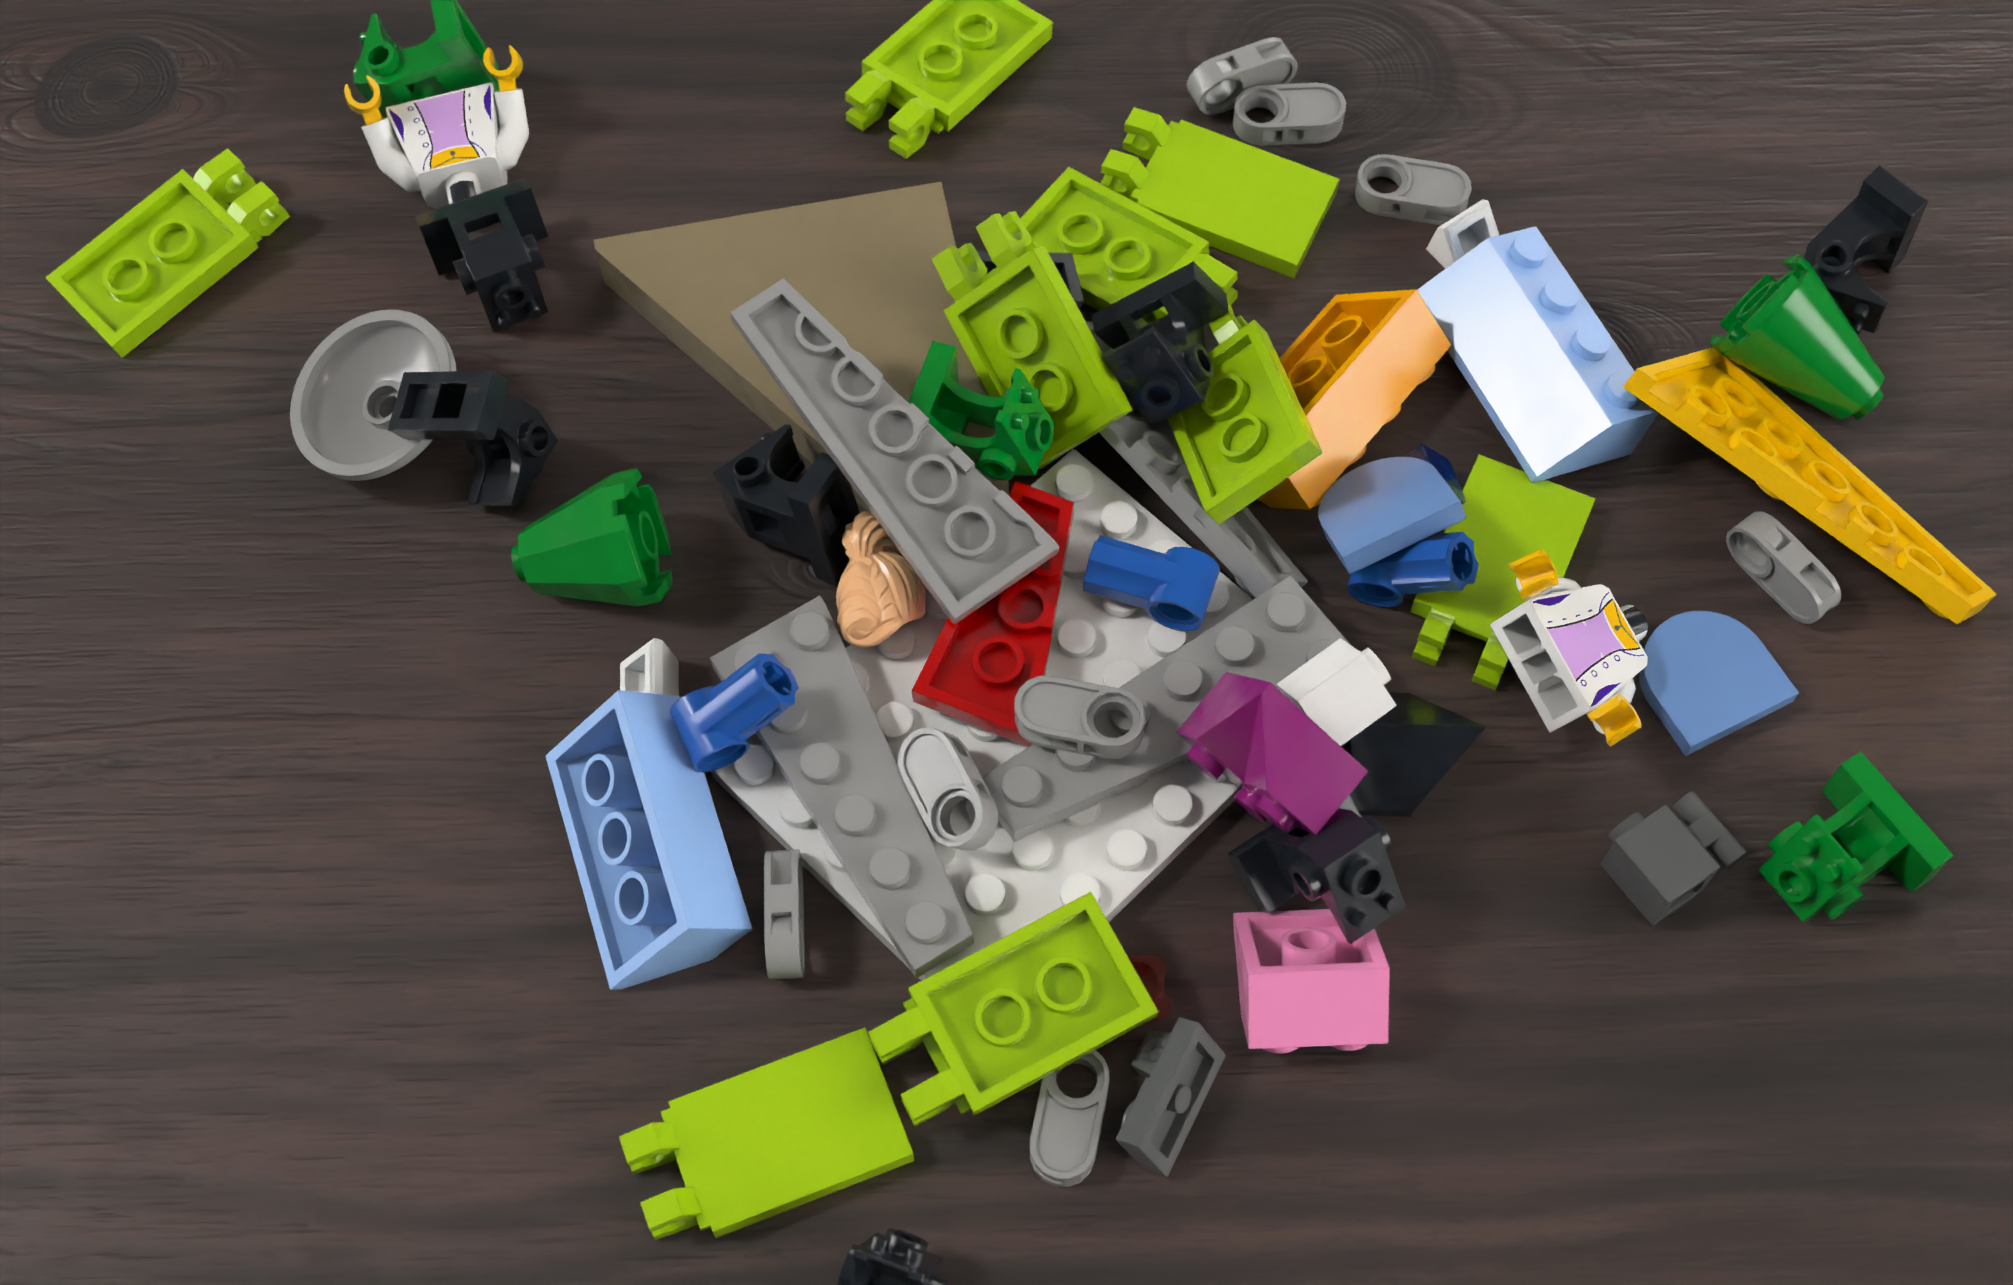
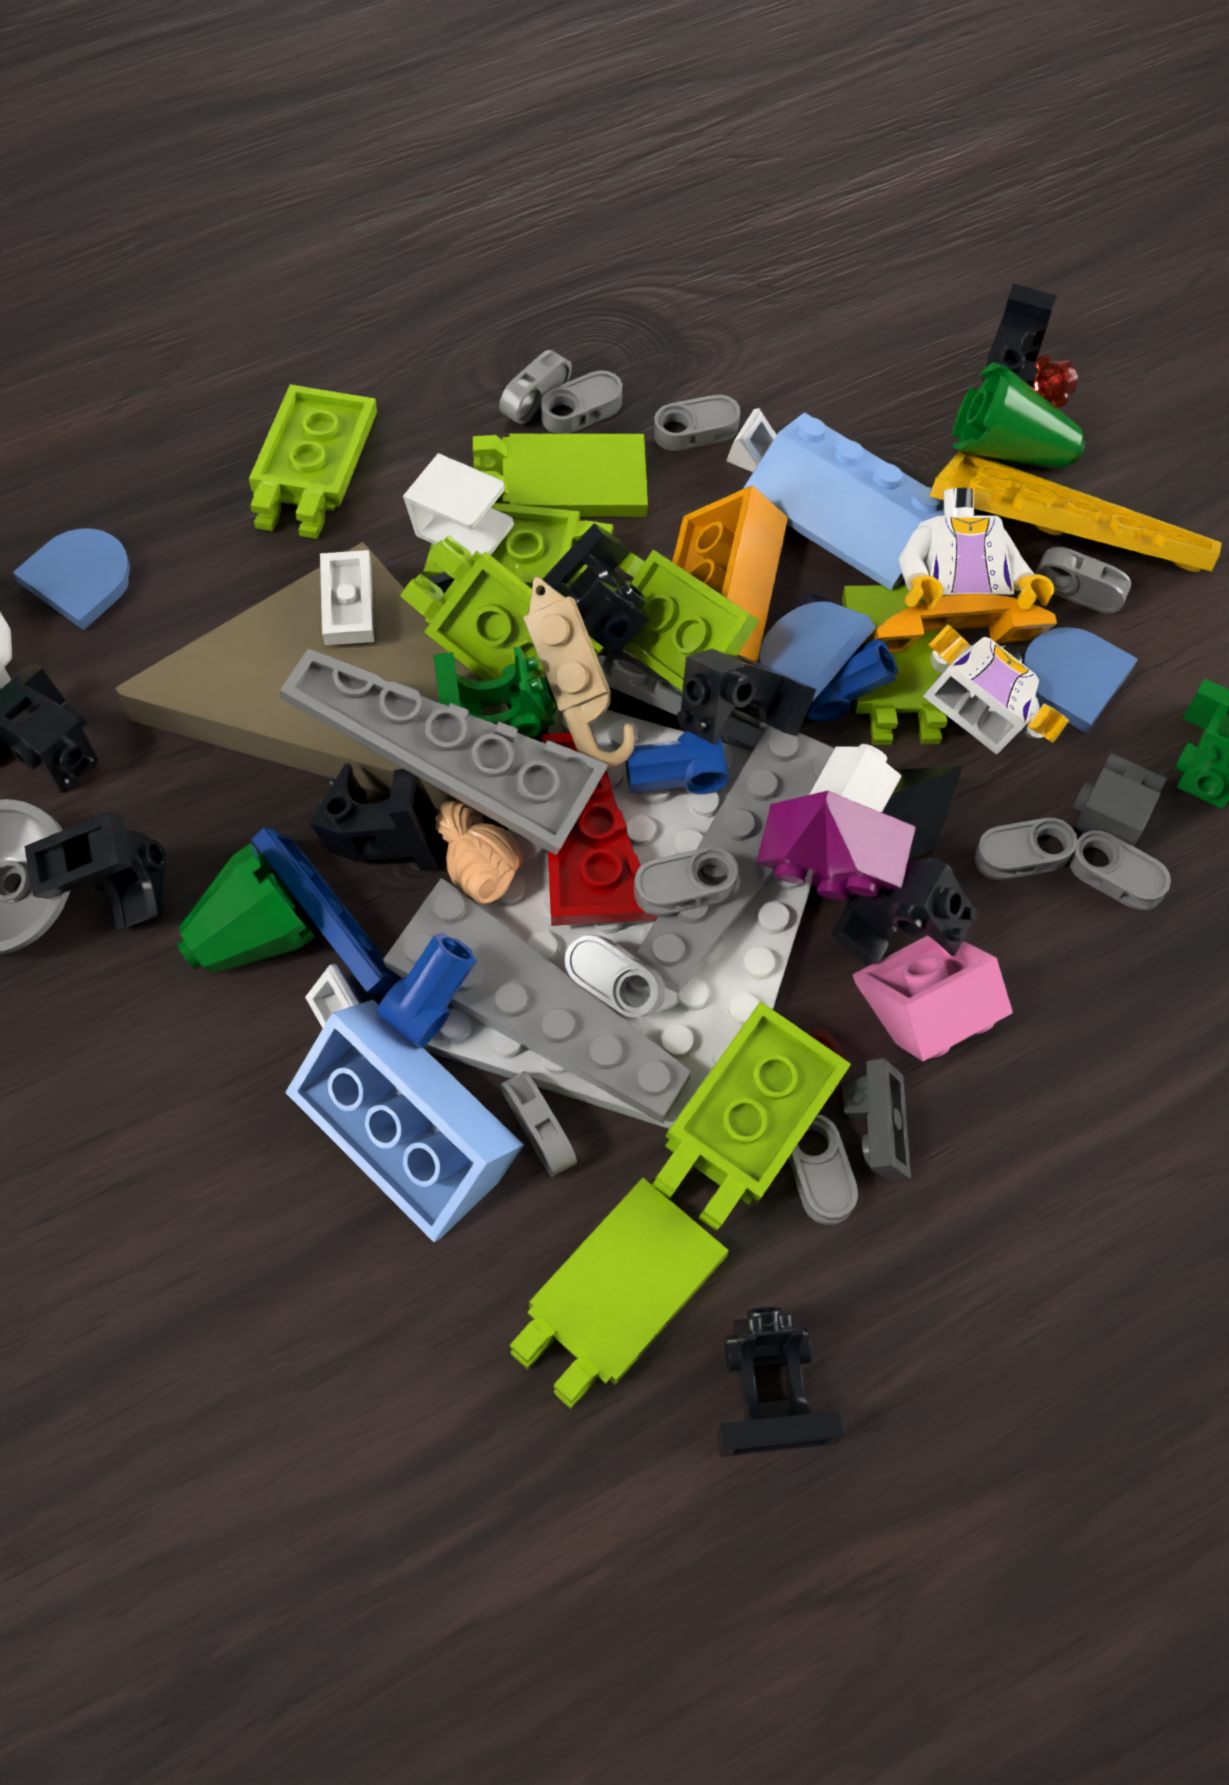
camera: 30 degrees left, 0 degrees up
(632, 99) = (78, 574): none -> medium blue tile
(685, 574) = (326, 911): none -> blue tile
(883, 238) = (346, 597): none -> white plate
(1062, 184) = (457, 503): none -> white piece
(1075, 423) = (573, 670): none -> tan plate
(1280, 525) = (725, 682): none -> black tile
(1508, 857) = (1014, 853): none -> light grey piece
(1628, 480) = (967, 556): none -> torso
(1637, 950) = (1130, 876): none -> light grey piece
(1656, 575) = (961, 611): none -> light orange slope
(1872, 305) = (1055, 380): none -> clear red plate

